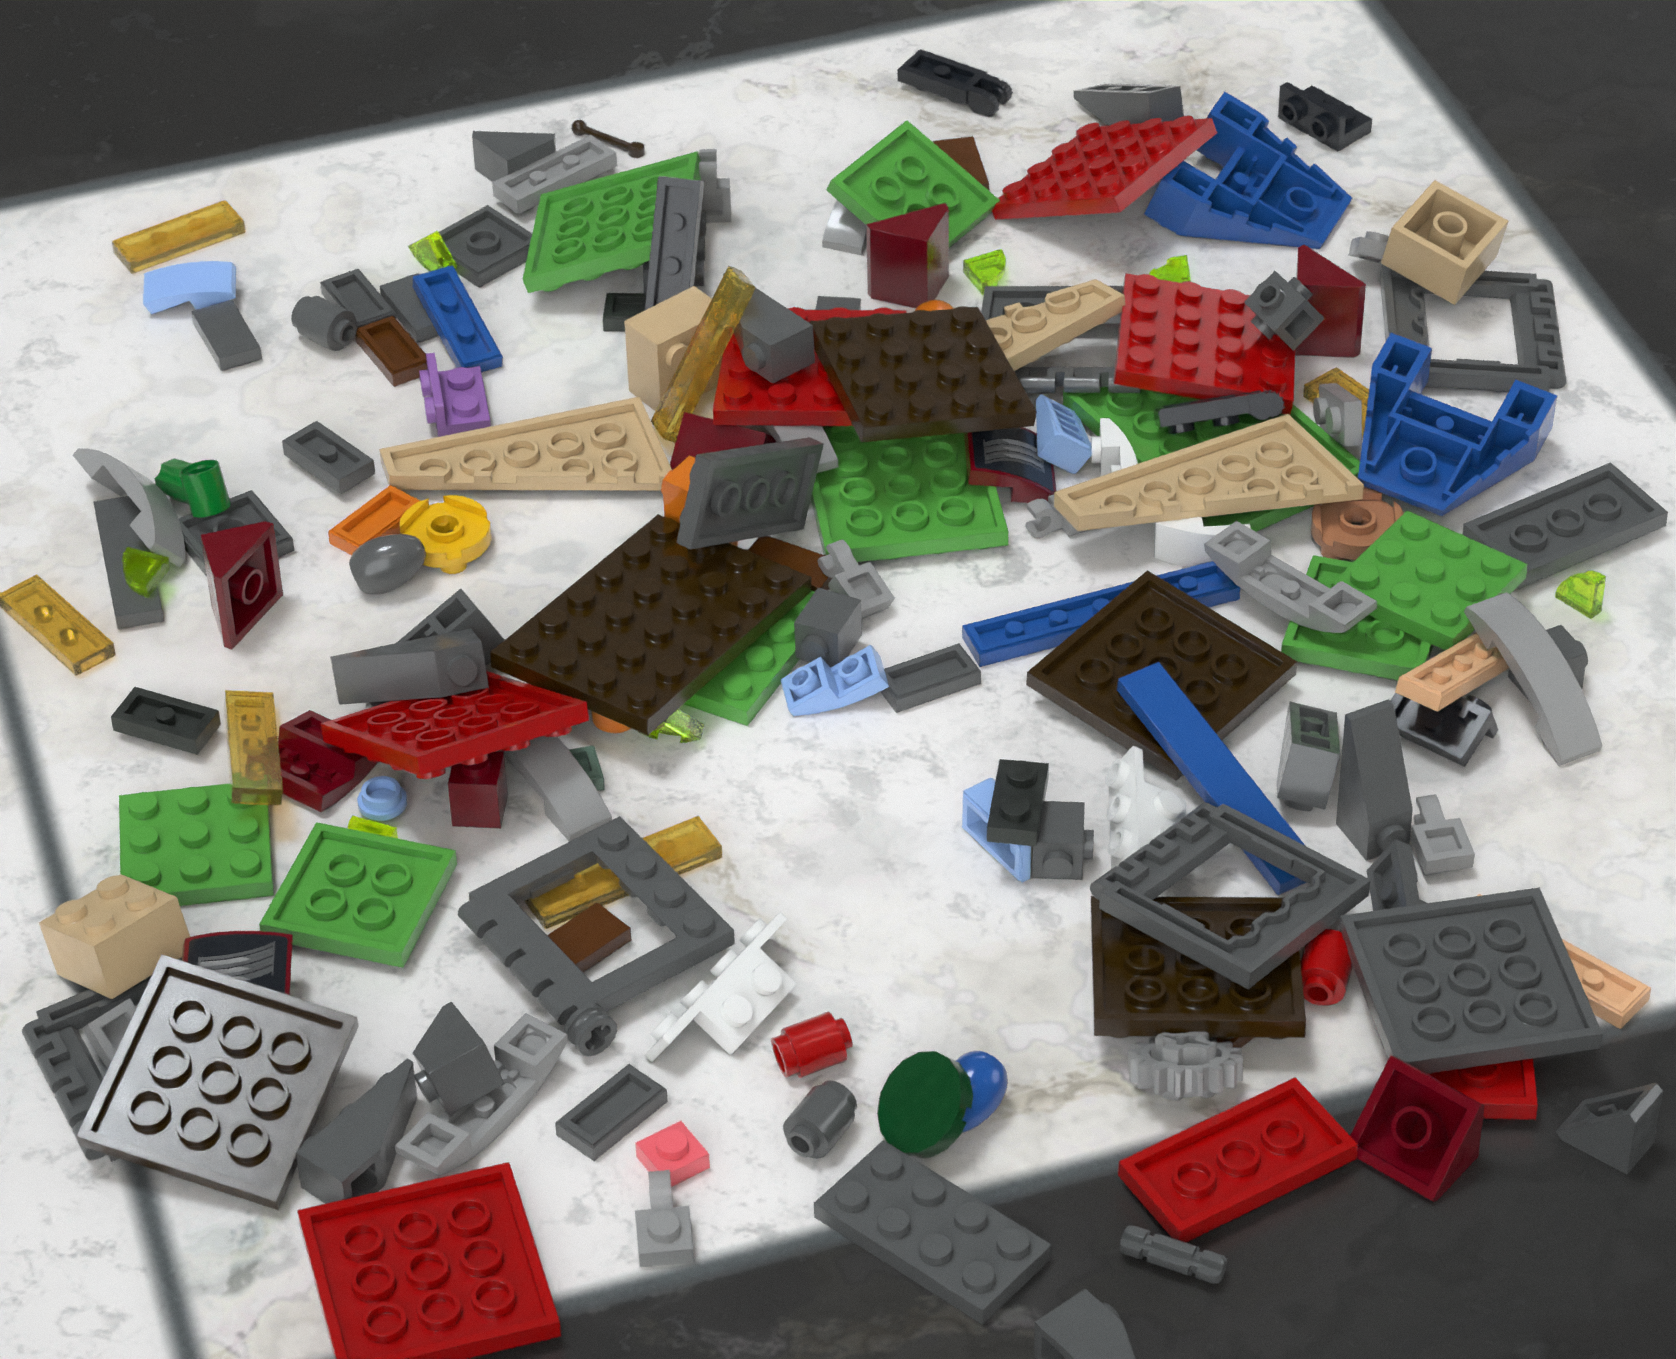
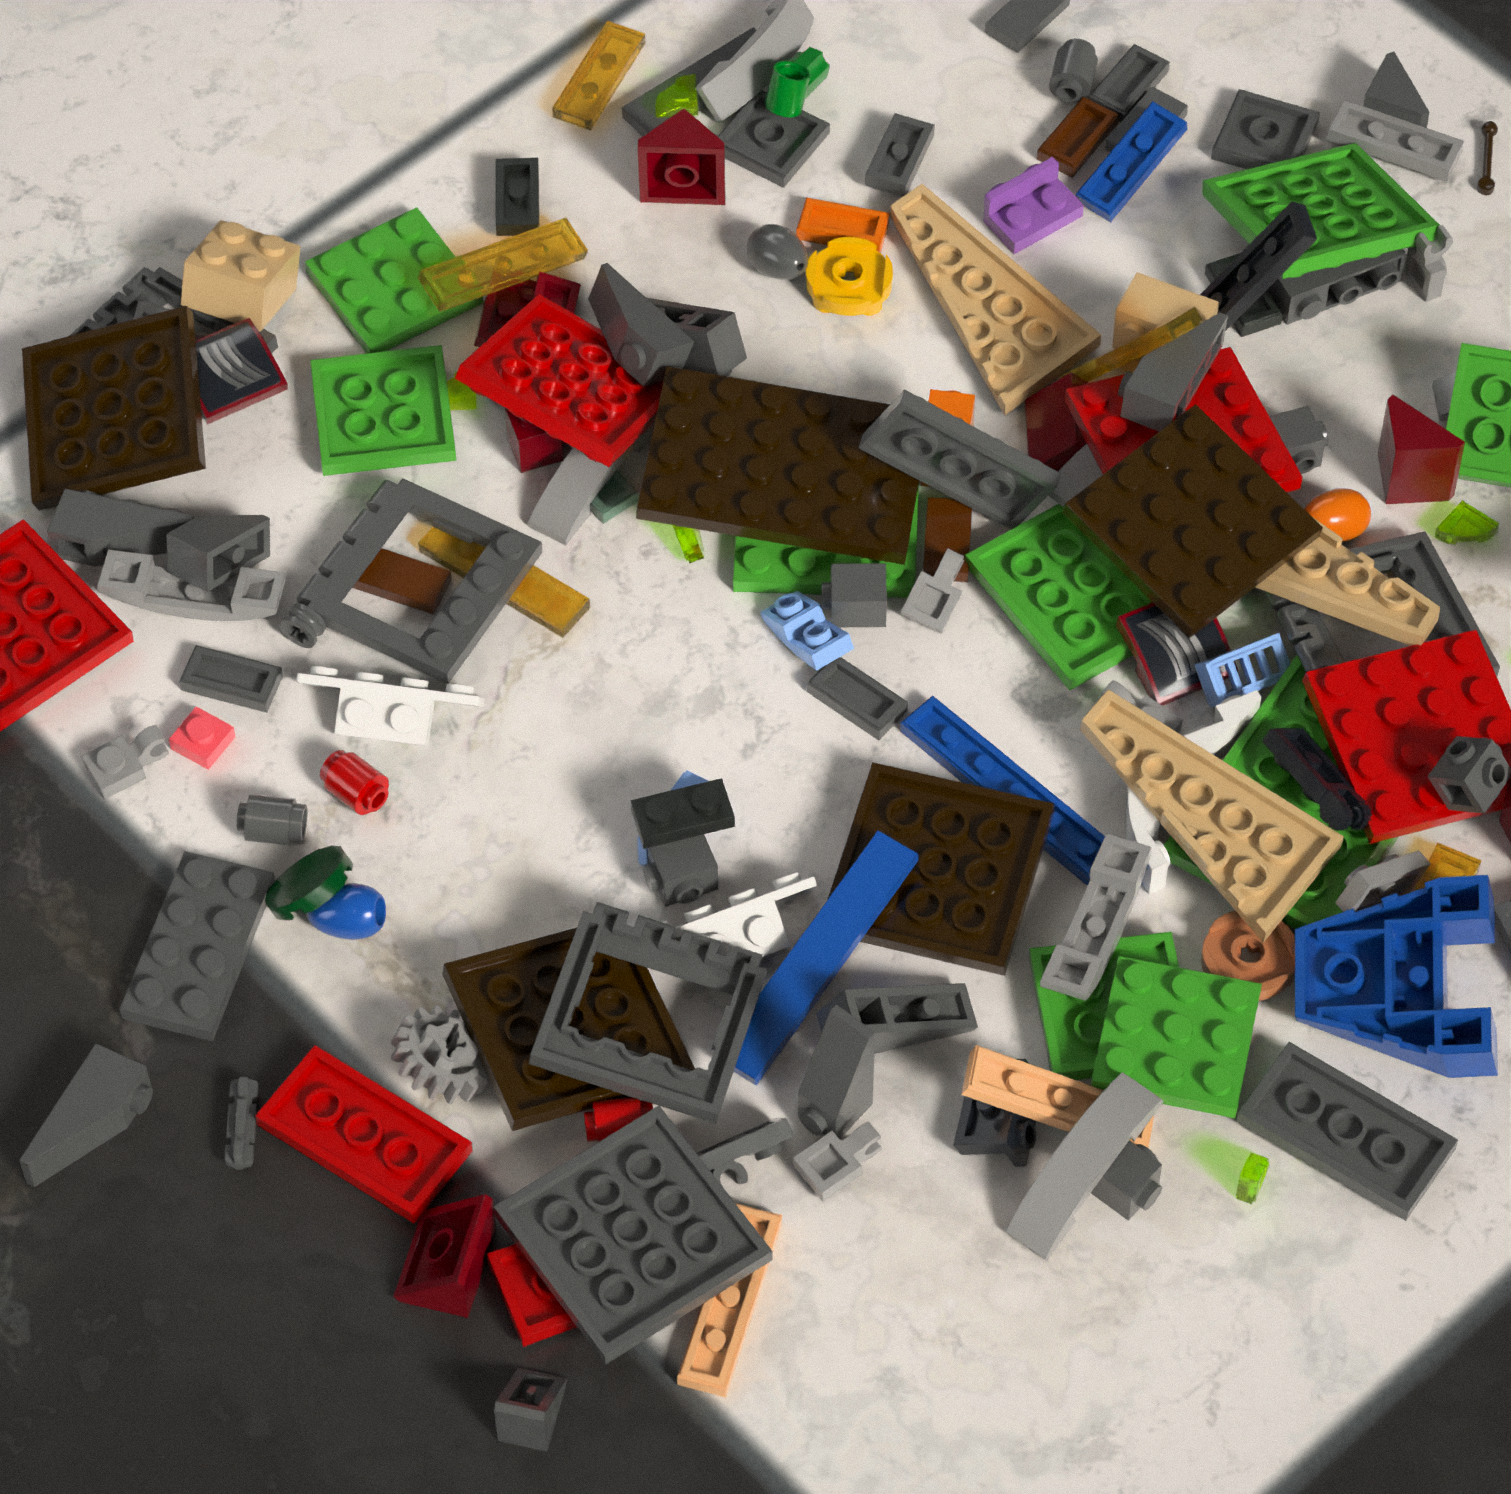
camera: 65 degrees right, 15 degrees up
(432, 252) = (1222, 99): clear neon green tile -> none

